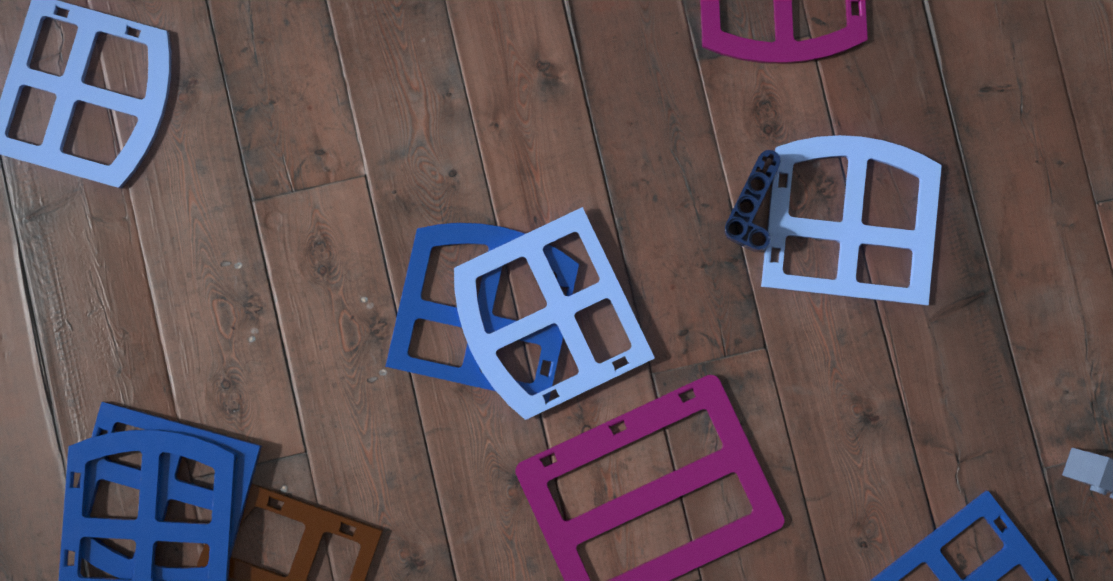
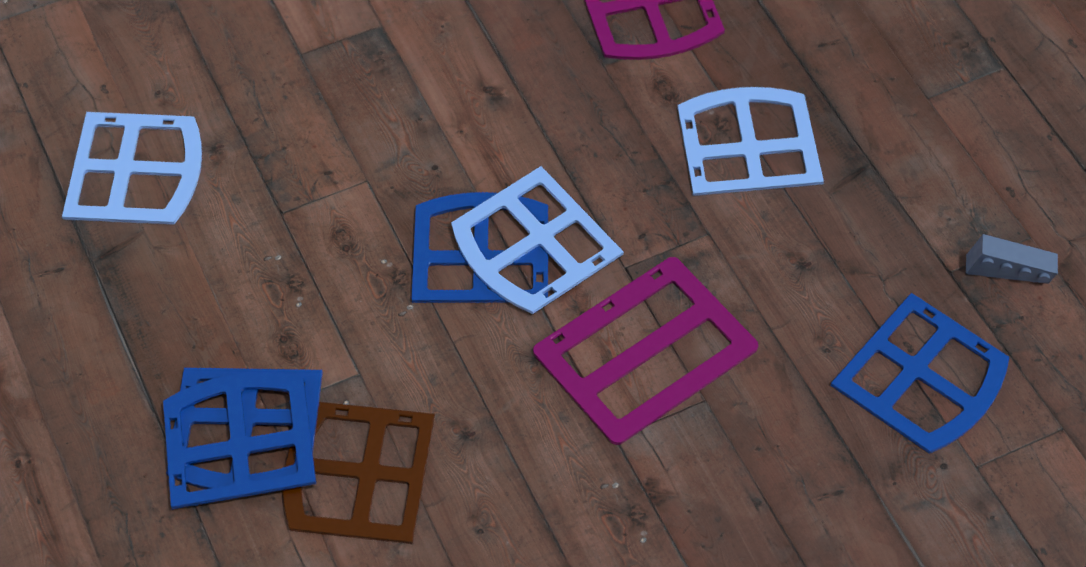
camera: 15 degrees left, 30 degrees down
(755, 198) = (665, 153): dark blue beam -> none

